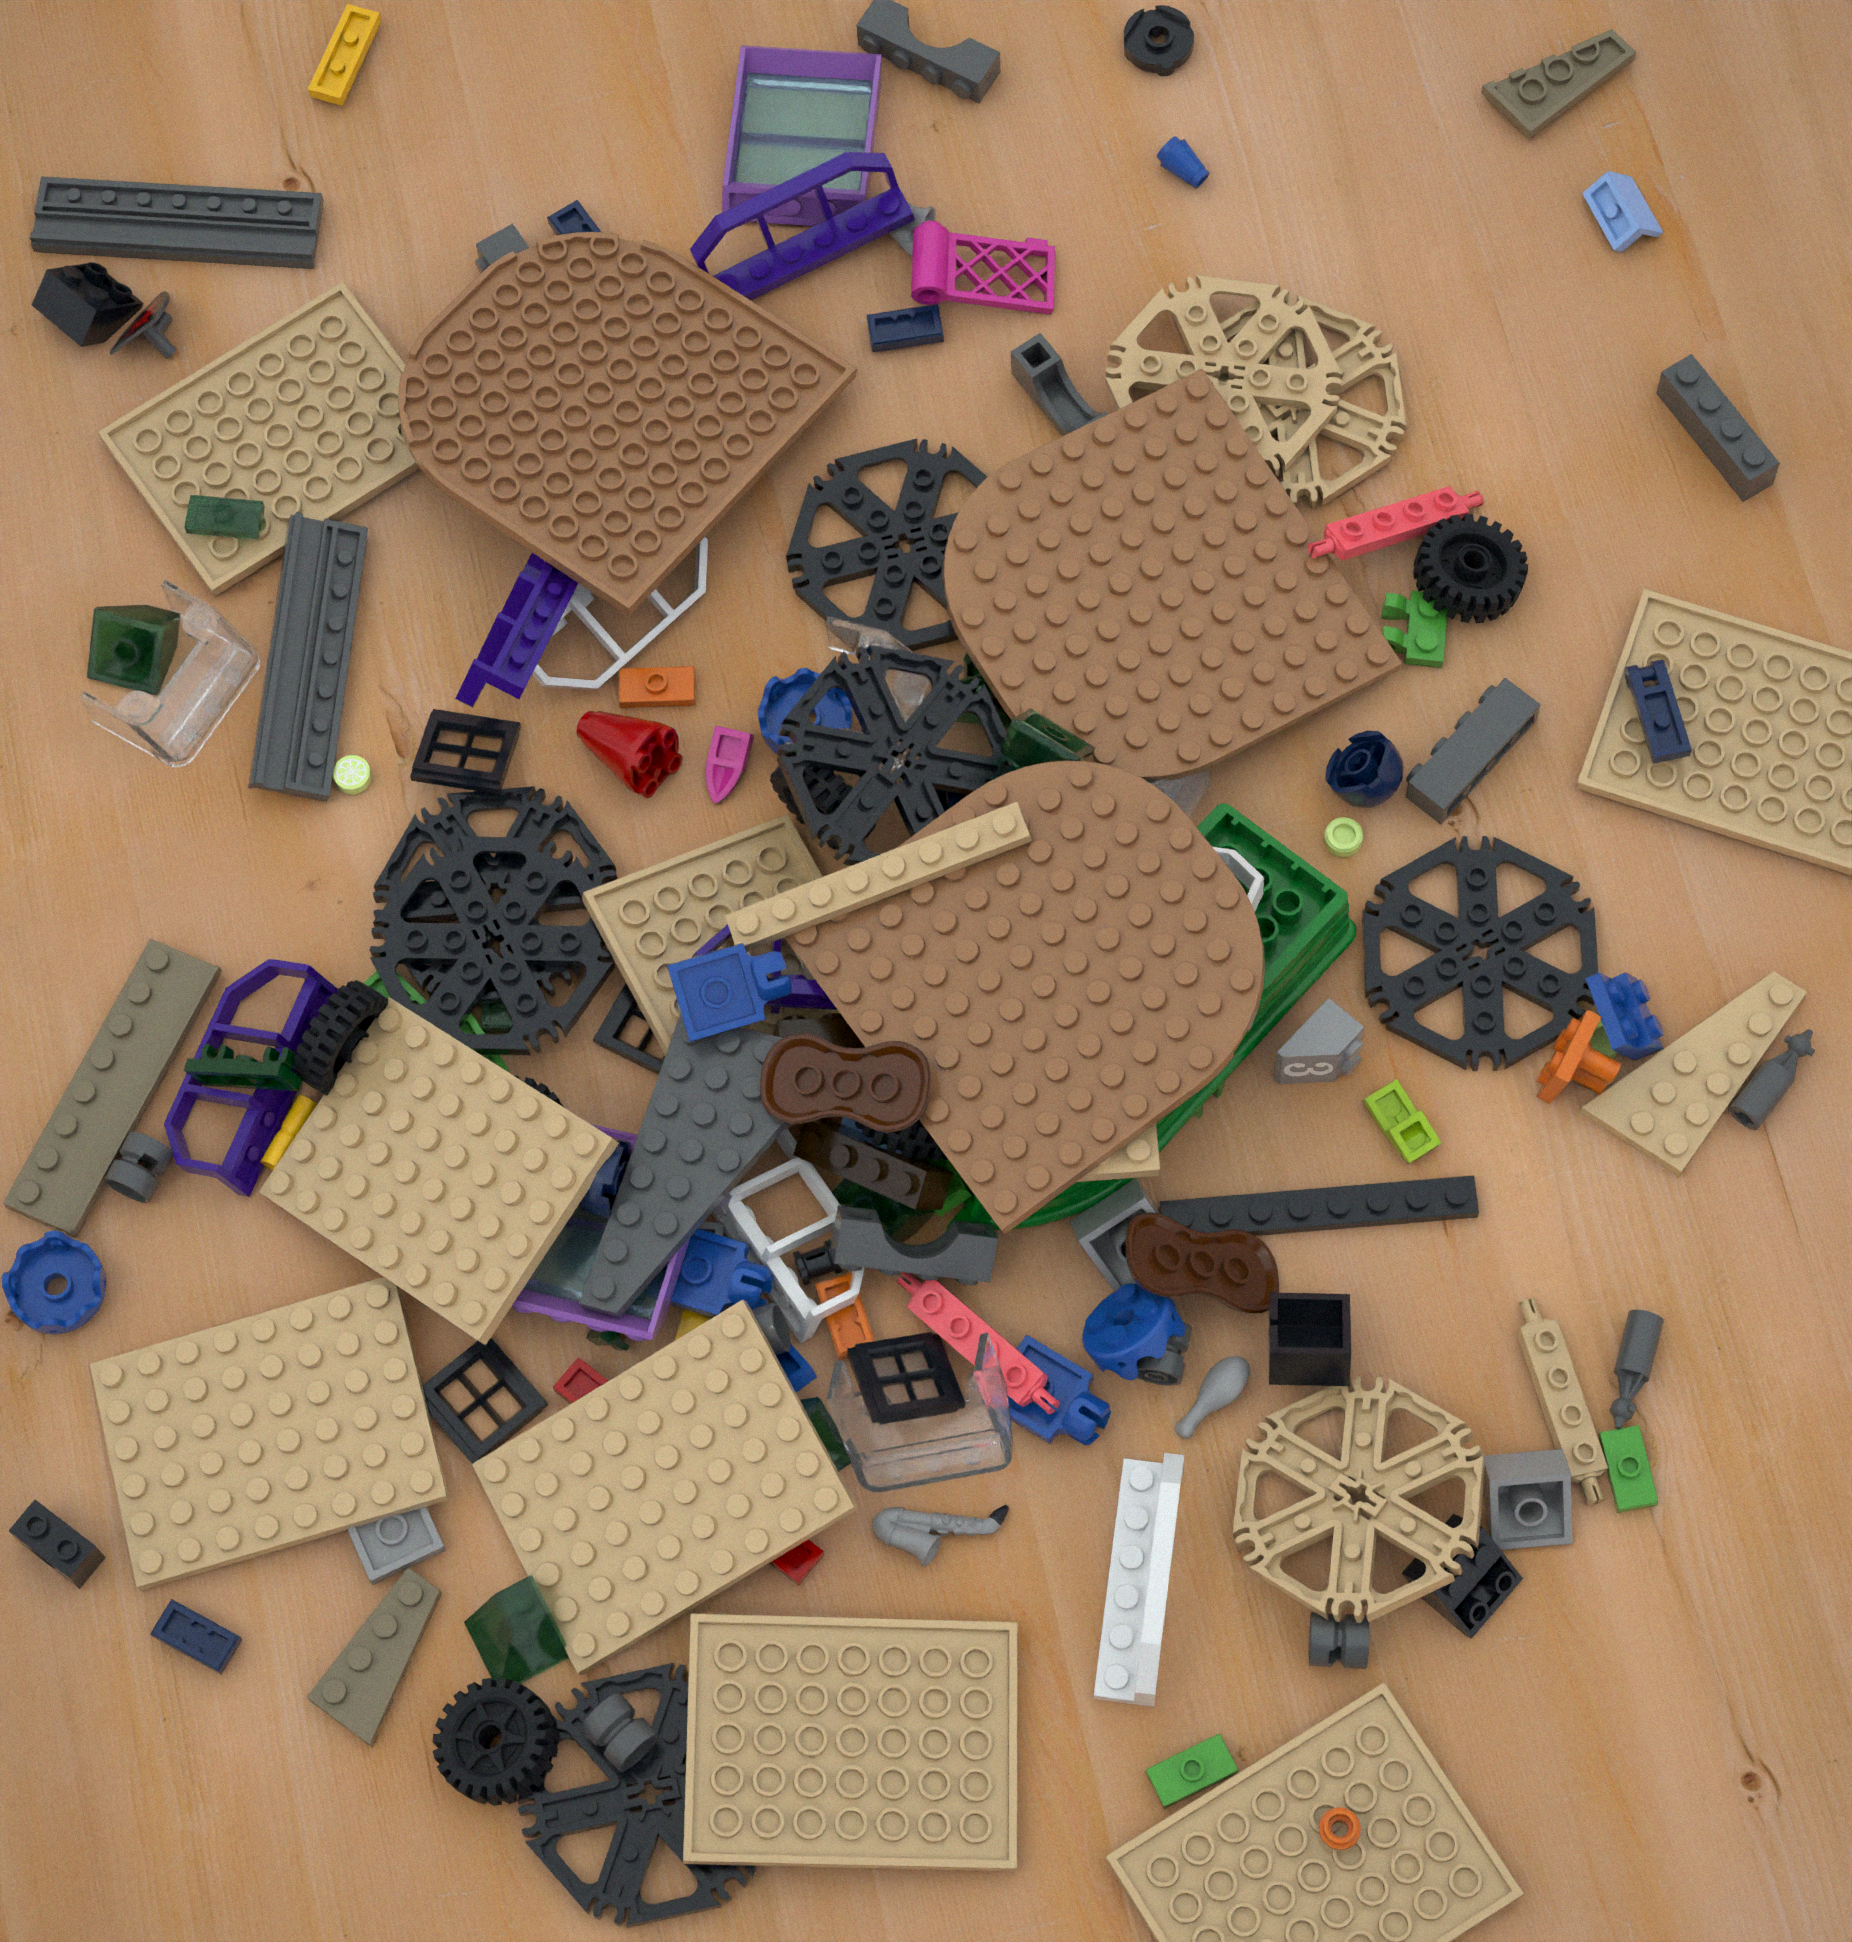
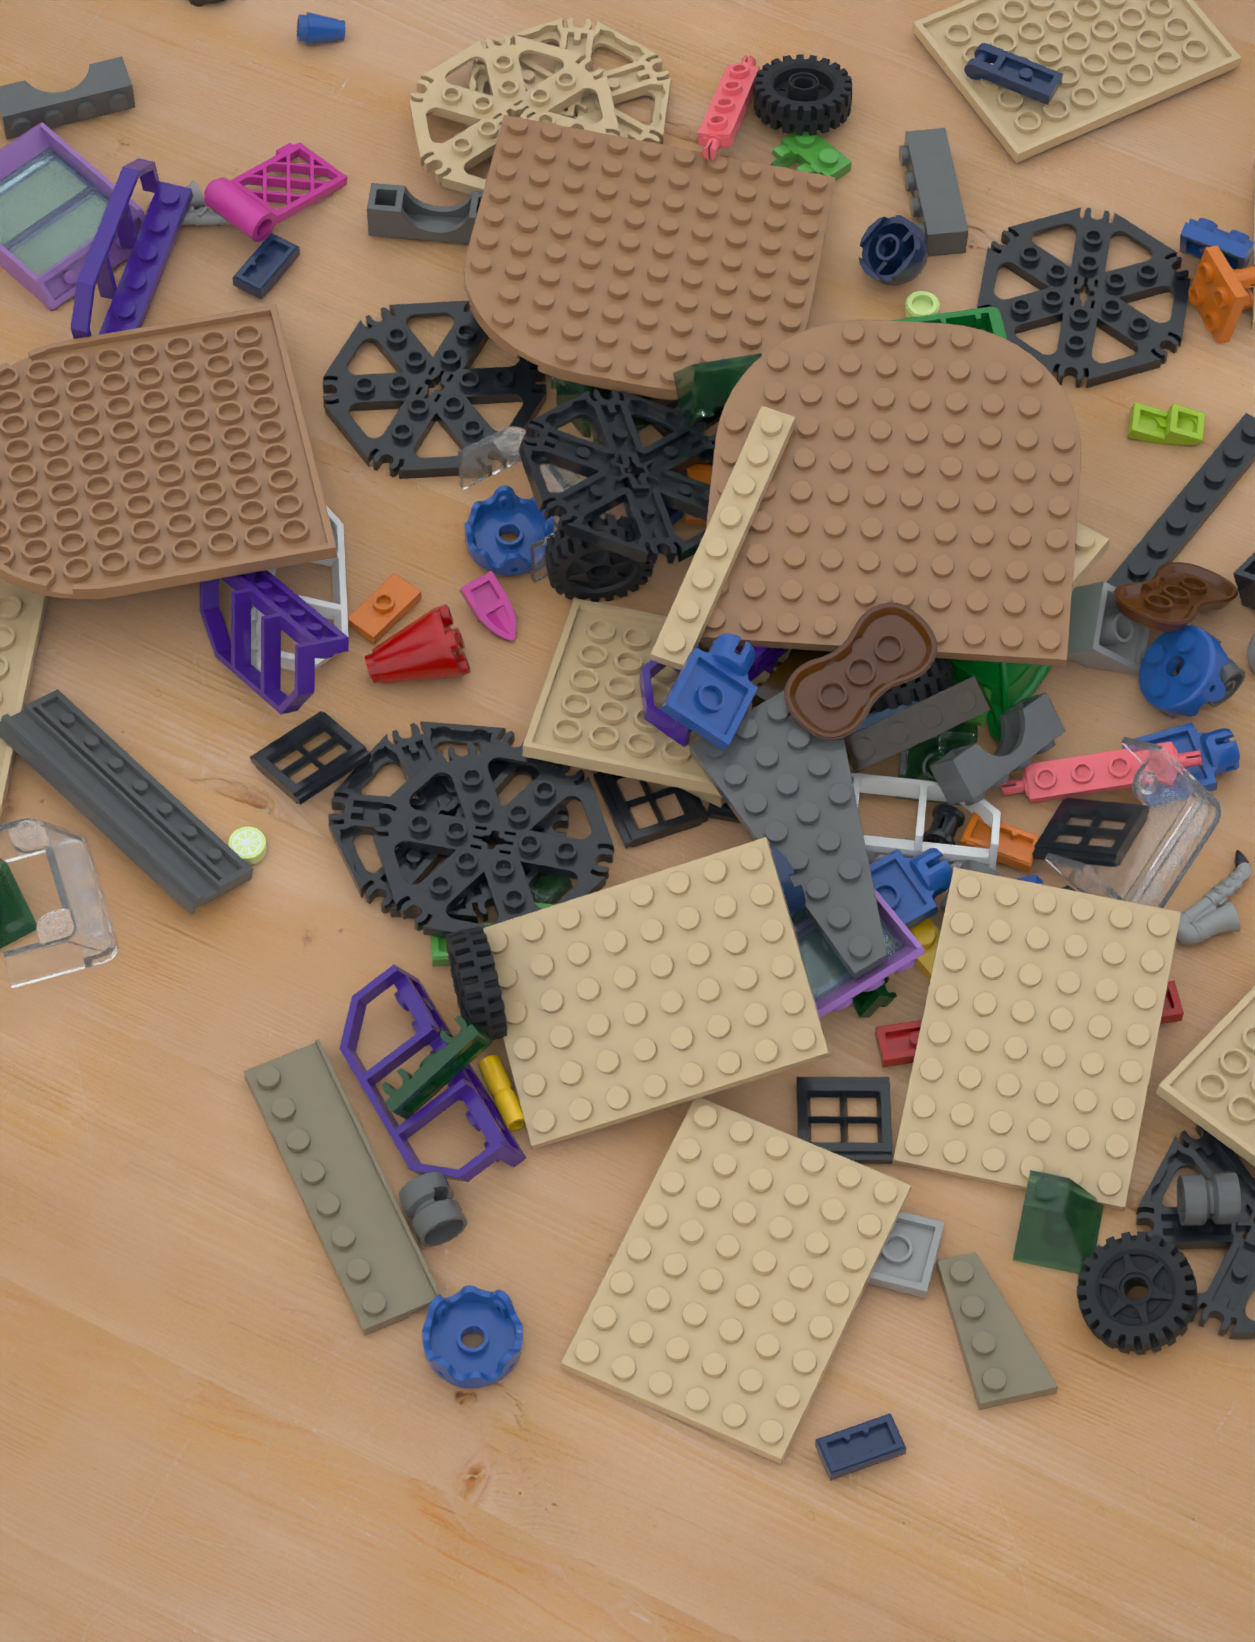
camera: 55 degrees left, 10 degrees down
(57, 1544) = (694, 1488): black brick -> none
(1321, 1048) = (1088, 402): light grey slope -> none

